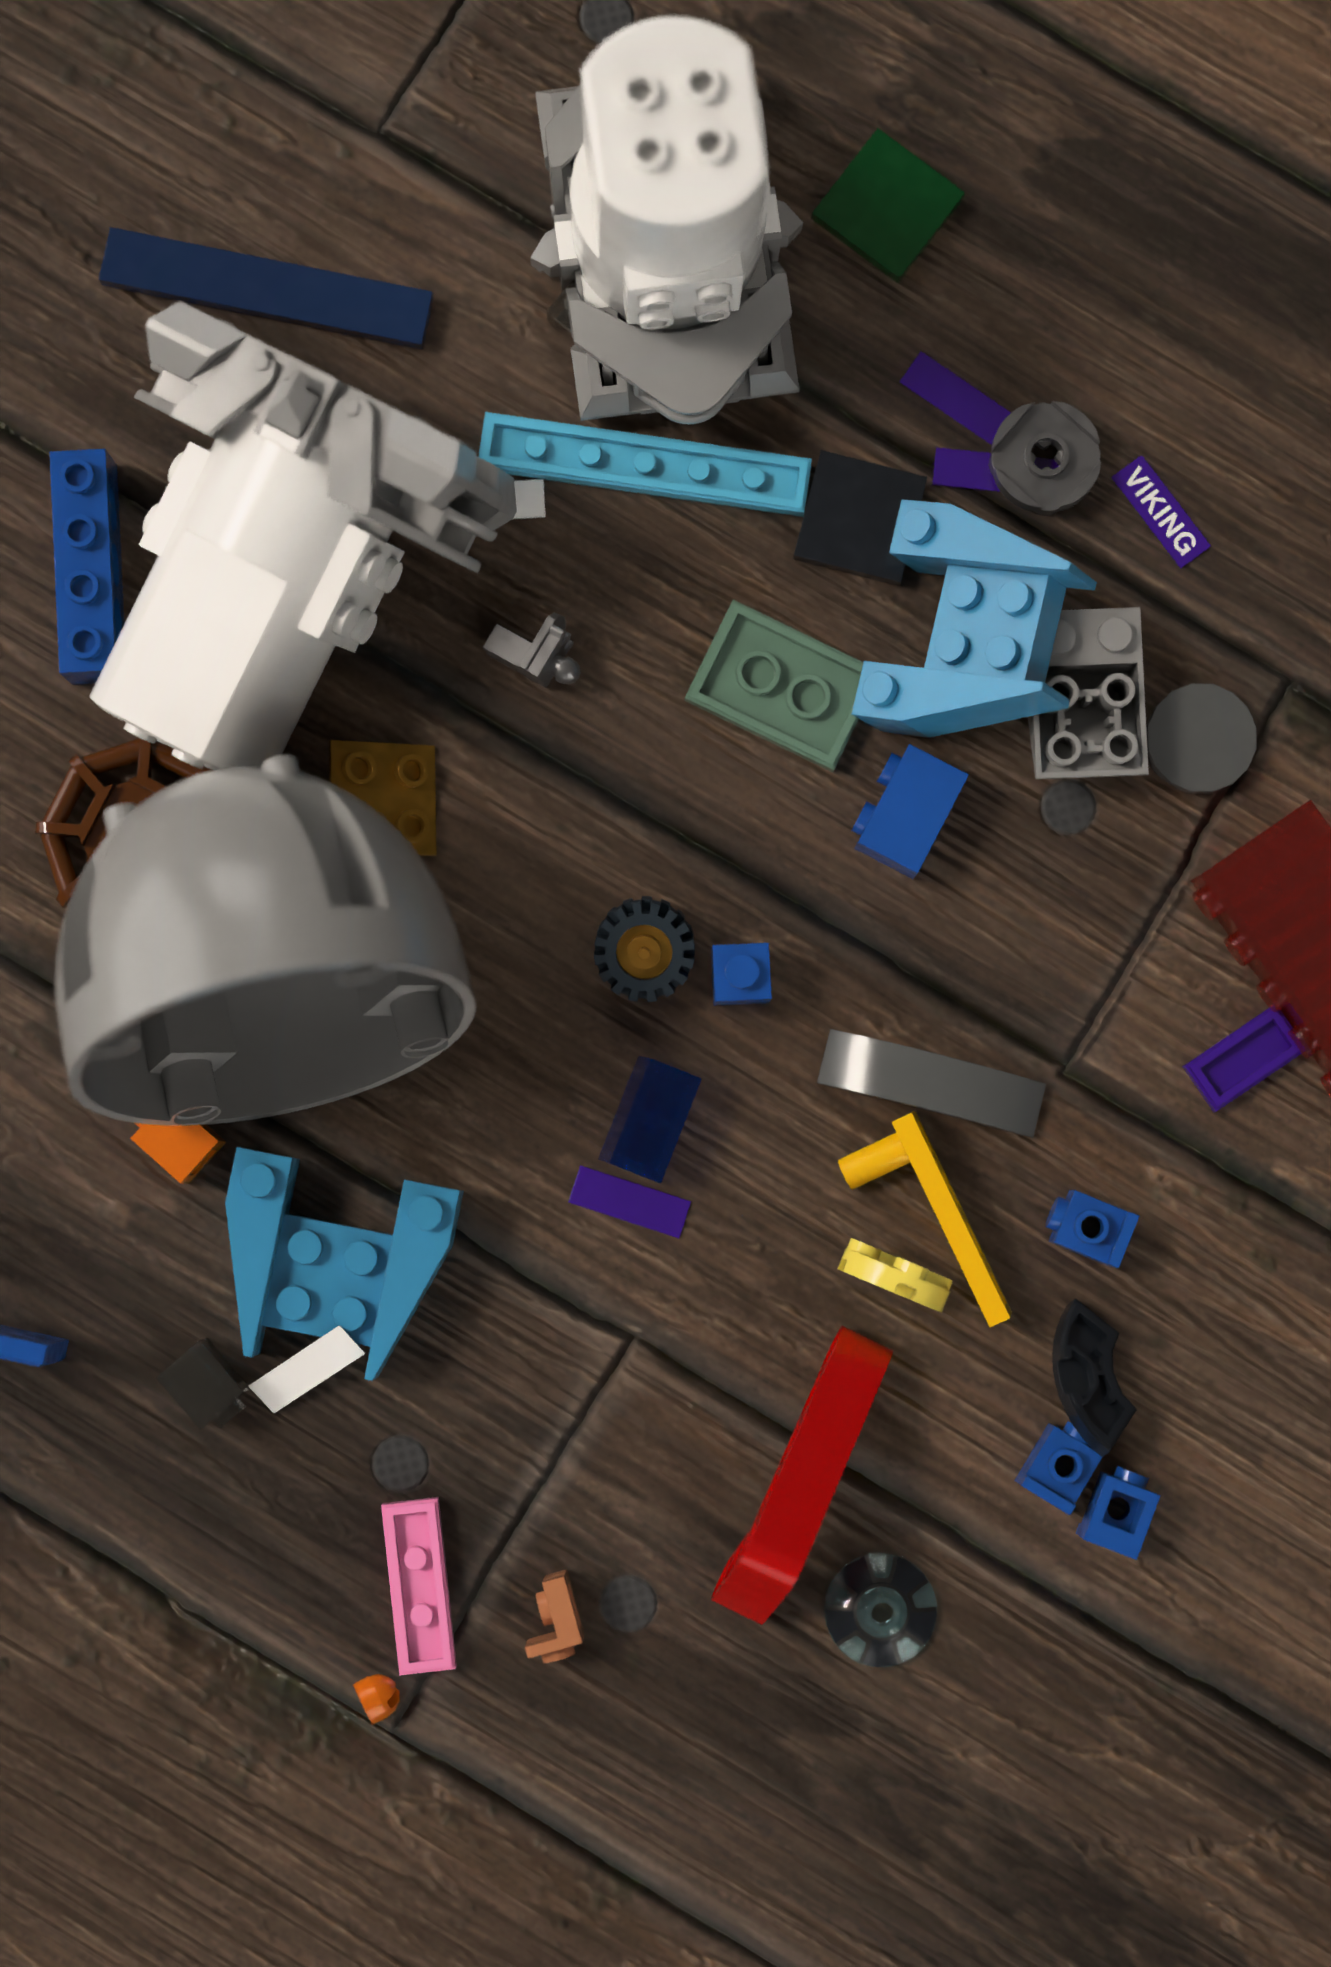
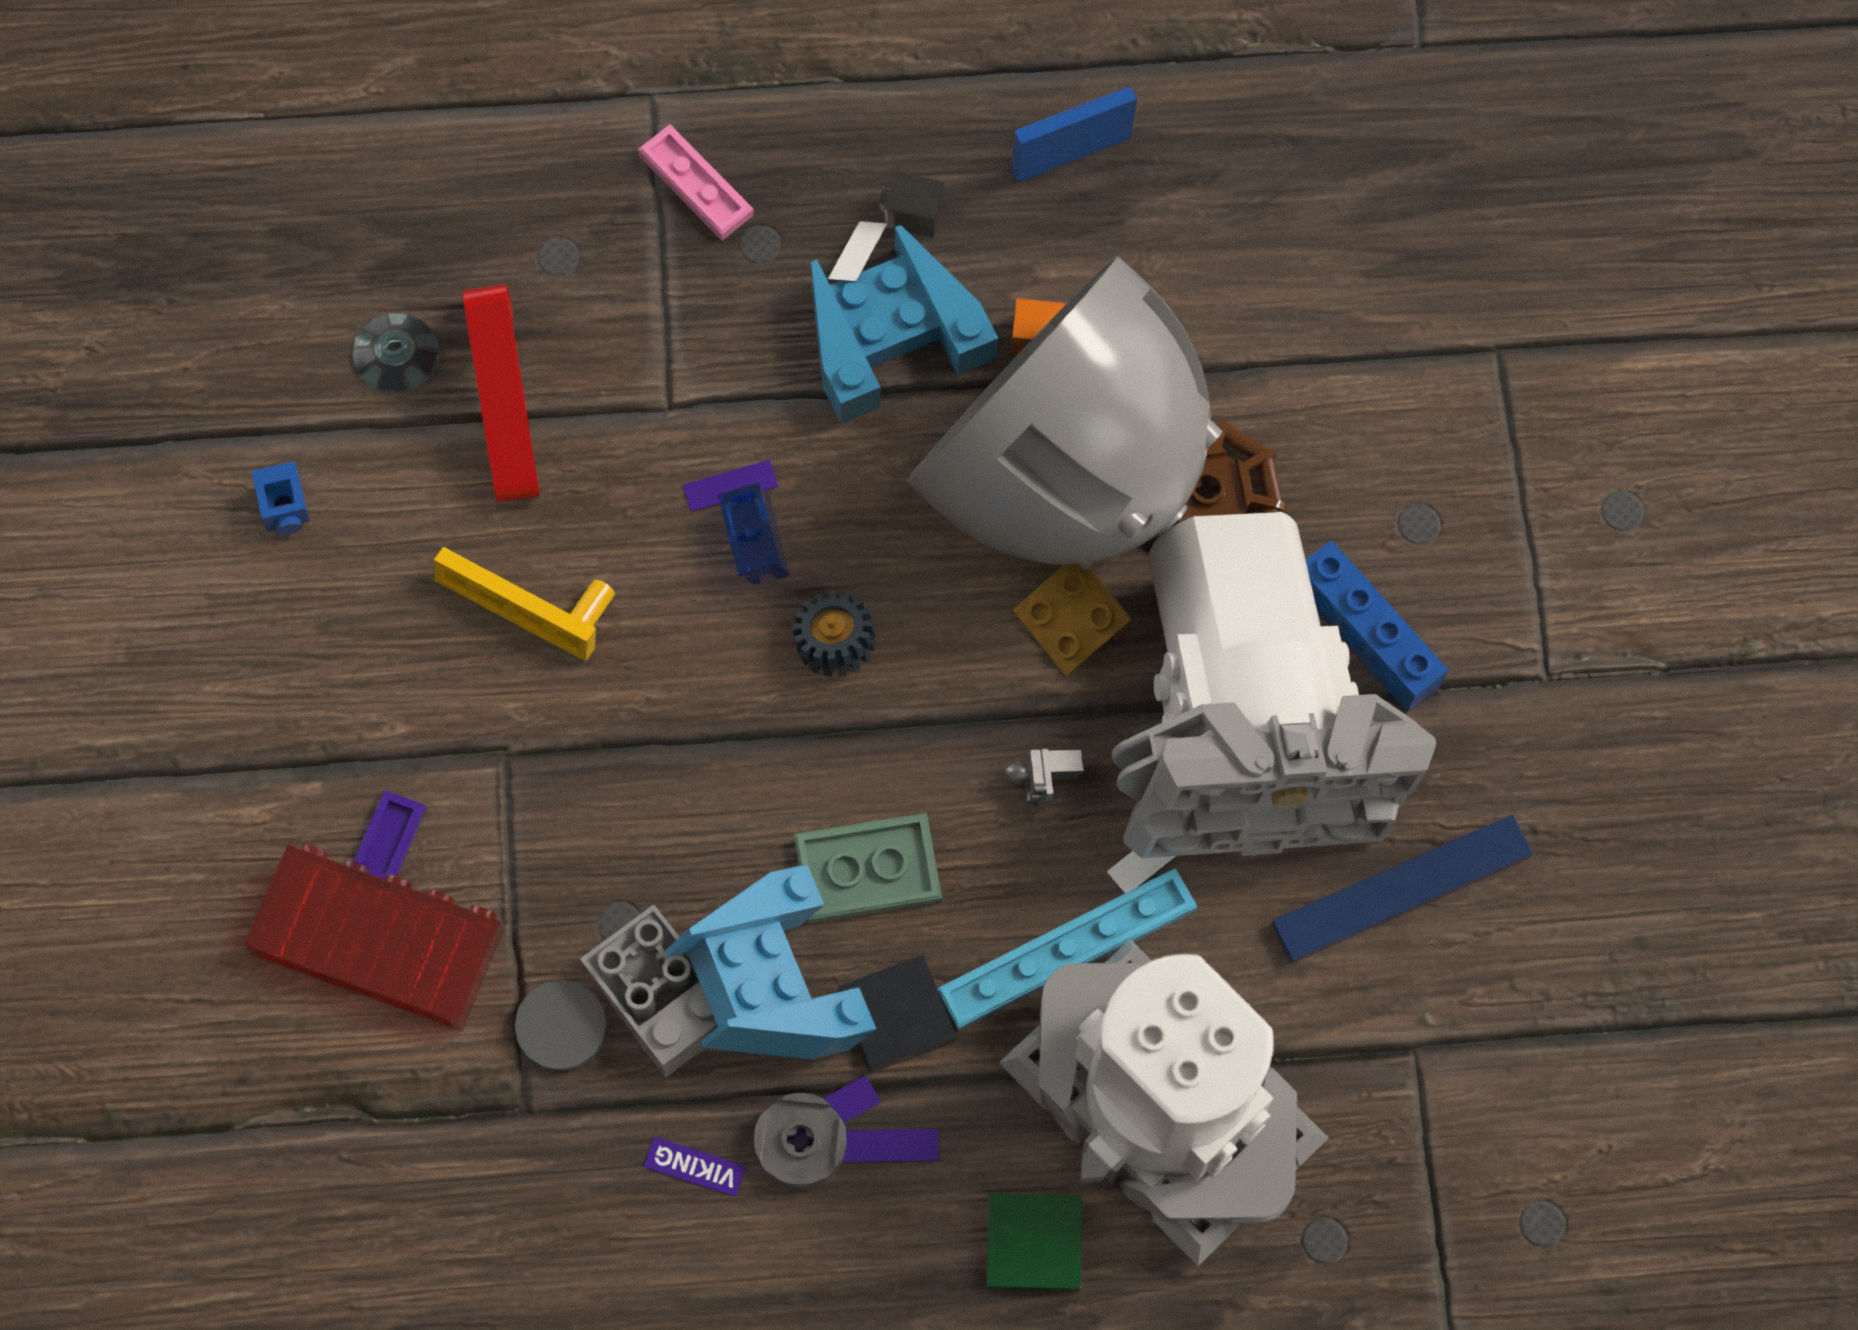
camera: 145 degrees right, 15 degrees down
(377, 1696) = (674, 103): orange hinge -> none
(558, 1608) = (594, 216): nougat bracket -> none
(741, 974) = (760, 659): blue brick -> none
(895, 1275) = (526, 538): light yellow plate -> none
(910, 810) = (724, 838): blue brick -> none
(931, 1082) = (584, 679): dark grey slope -> none
(1039, 1469) = (338, 485): blue brick -> none
(1087, 1378) = (359, 565): black tile -> none
(1114, 1234) = (415, 673): blue brick -> none

